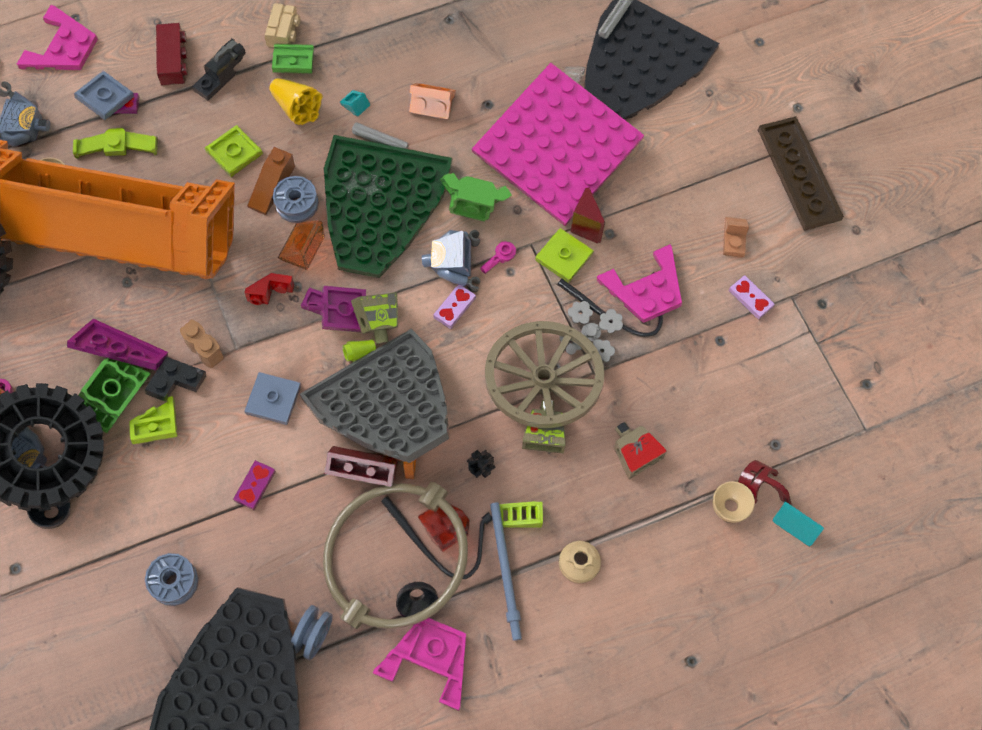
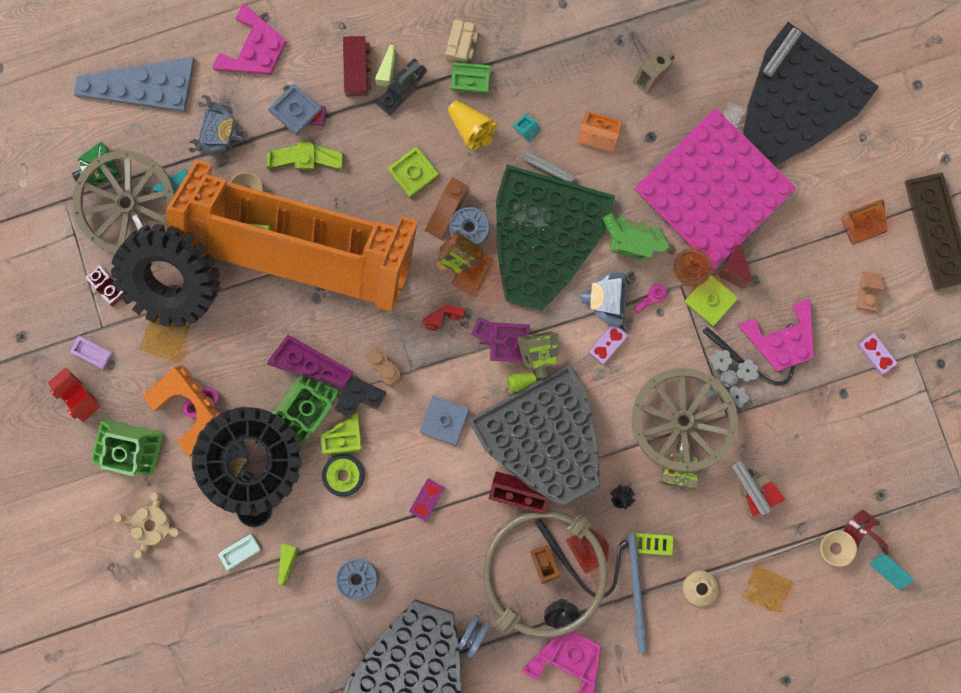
camera: 10 degrees right, 15 degrees up
(31, 561) = (239, 552): none -> light aqua tile
(88, 562) = (287, 559): none -> lime slope
(162, 477) = (330, 475): none -> wheel
(203, 53) = (385, 72): none -> yellowish green slope
(283, 221) = (459, 254): none -> clear orange torso
(395, 545) = (545, 564): none -> dark orange slope
(483, 39) = (653, 70): none -> dark tan torso
(540, 219) = (692, 267): none -> clear orange cone
(626, 439) = (751, 488): none -> light grey axle
(660, 549) = (771, 583): none -> clear yellow plate
(721, 166) = (865, 222): none -> clear orange slope

